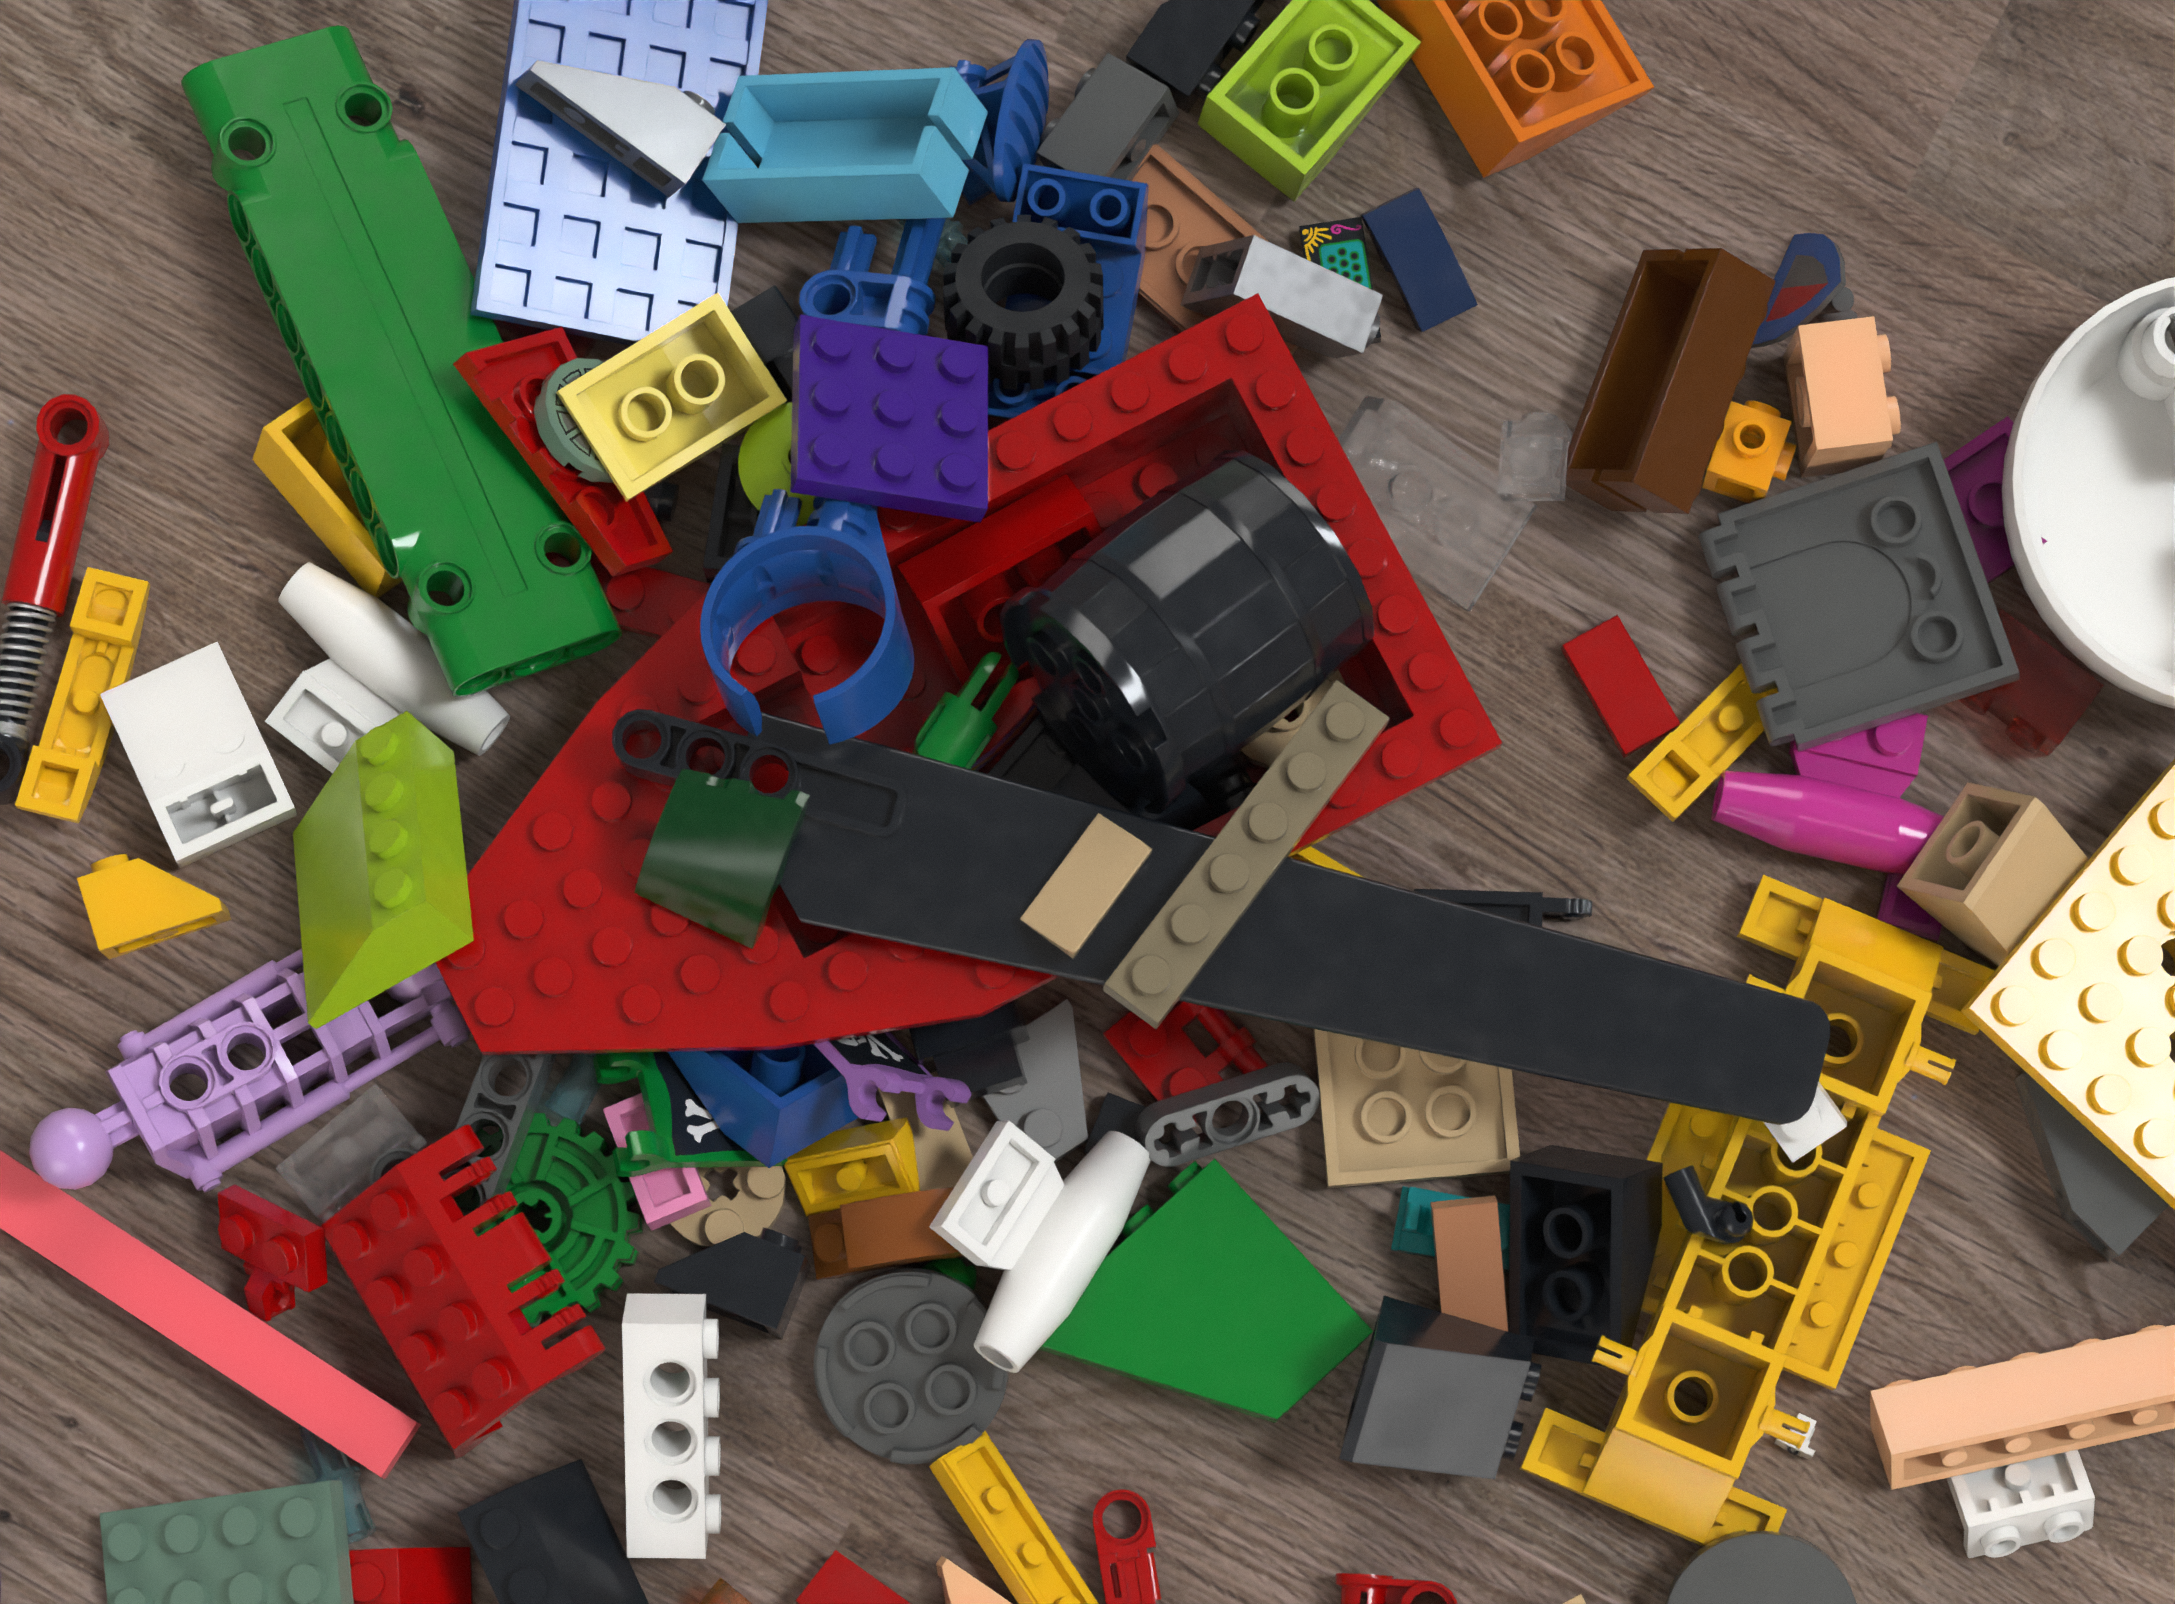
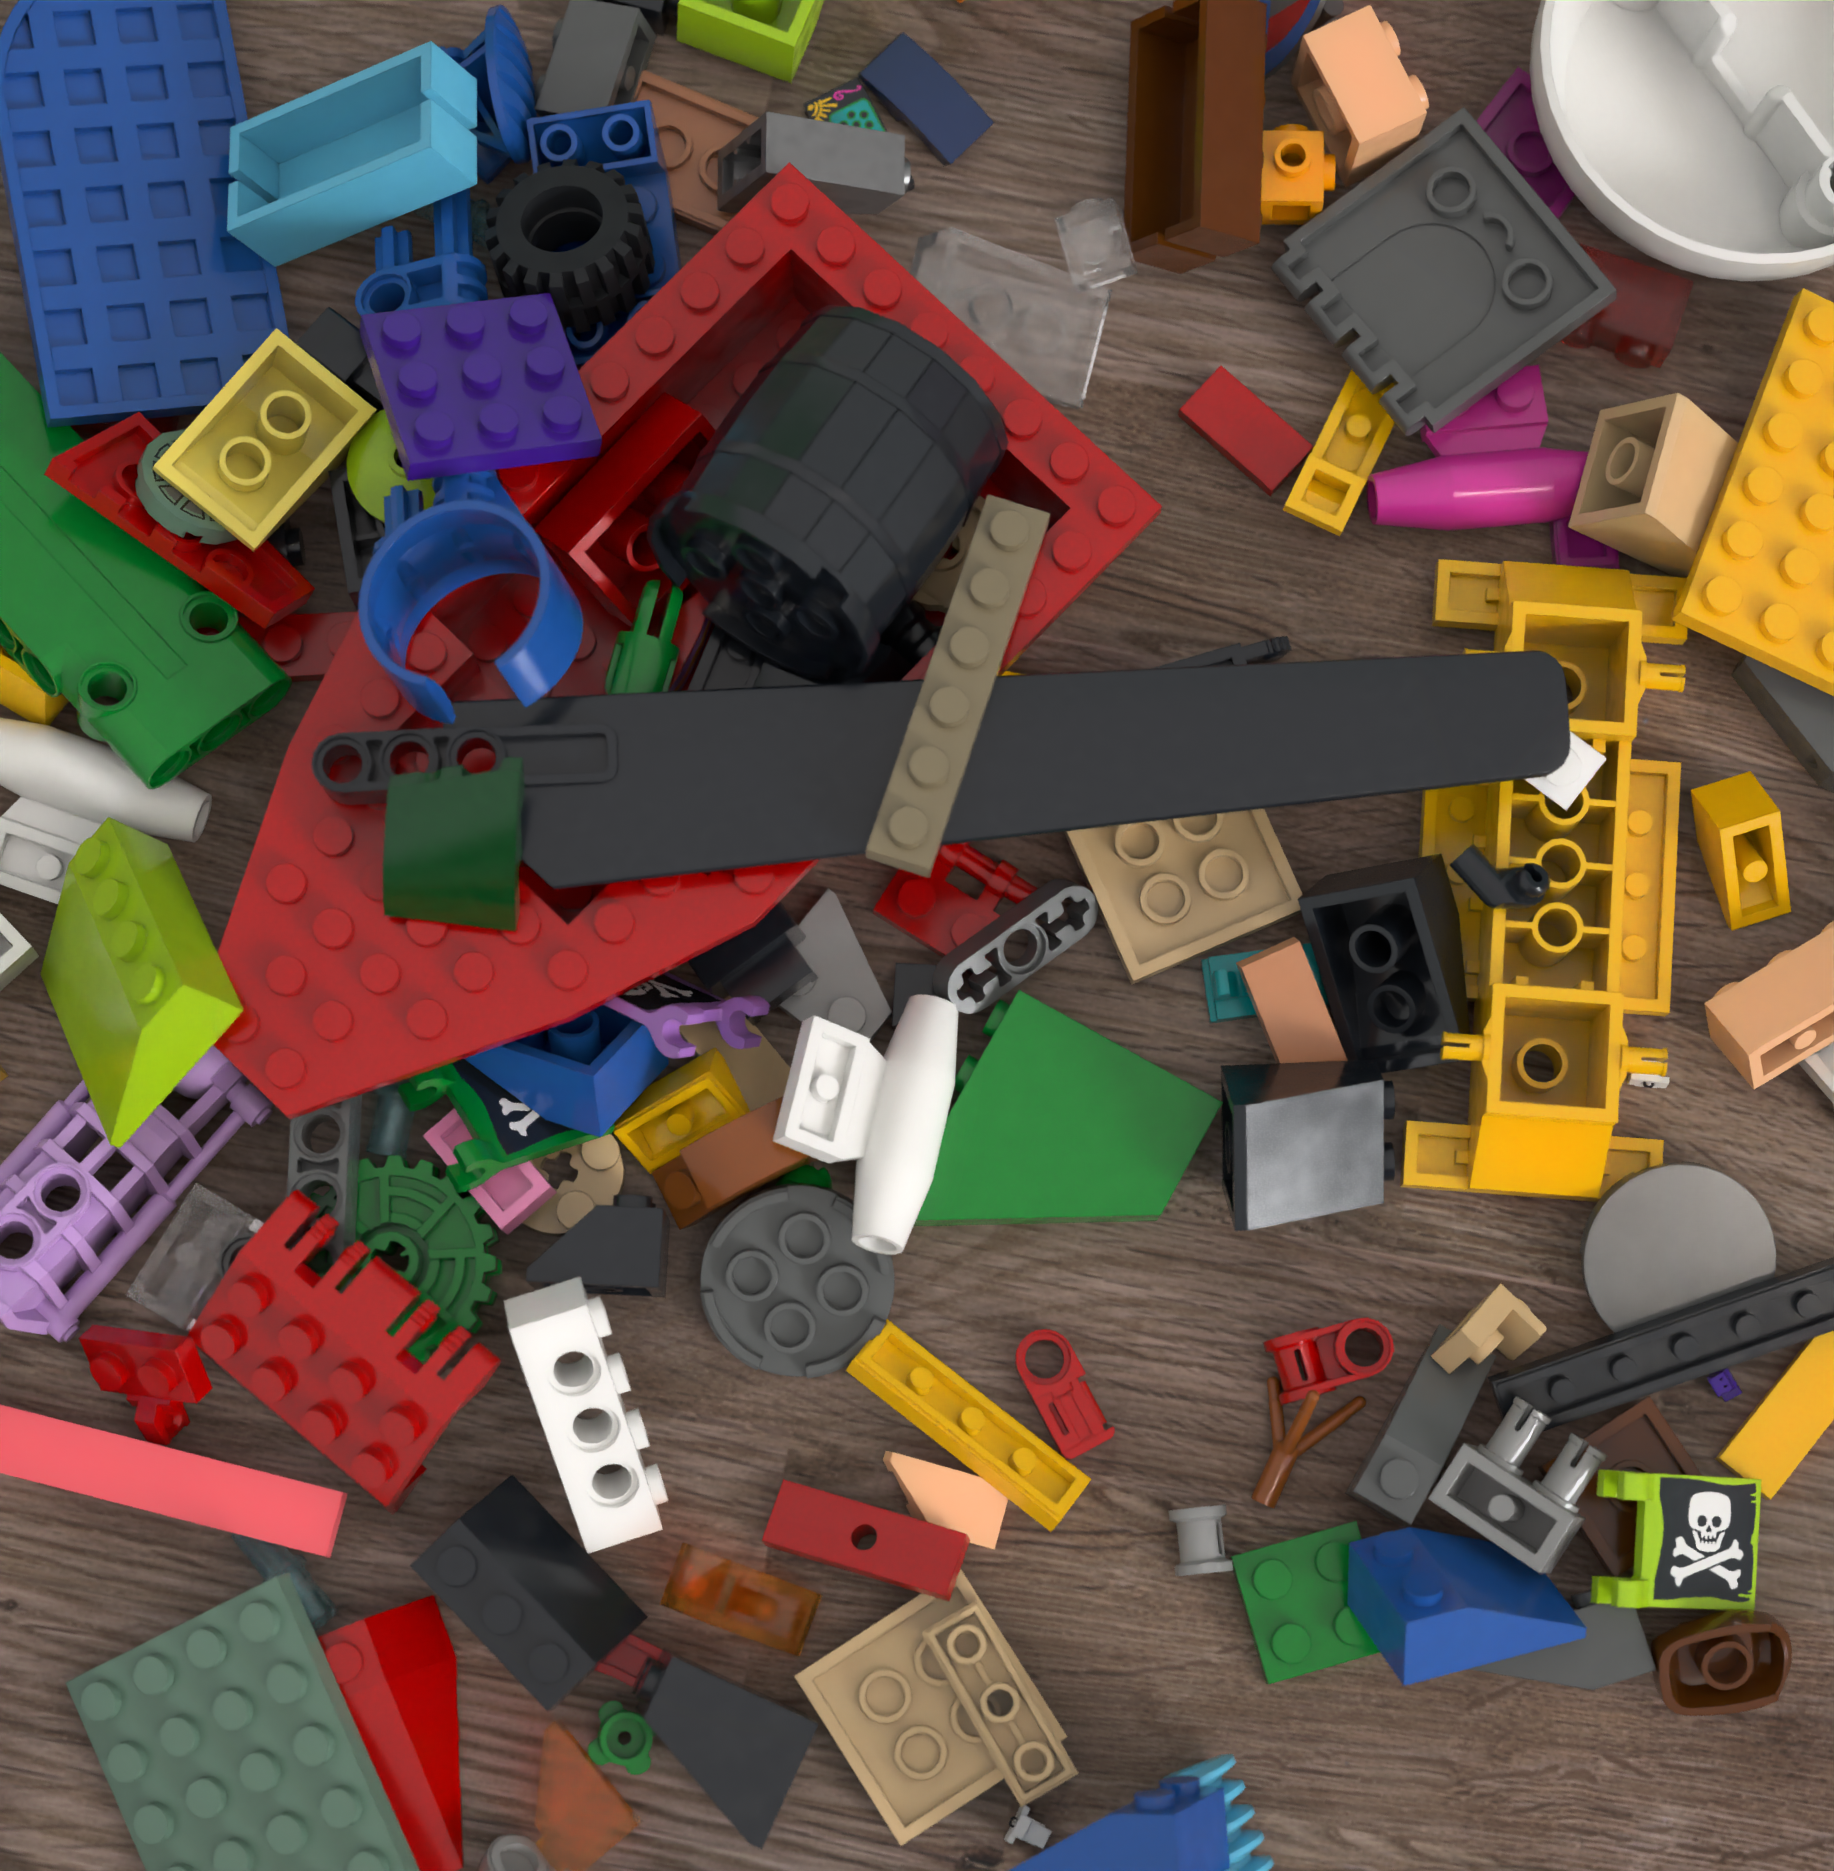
camera: 20 degrees left, 0 degrees up
(638, 122) = (144, 195): slope -> none
(1086, 885) = (816, 763): tan slope -> none
(1961, 1254) = (1742, 849): none -> yellow slope

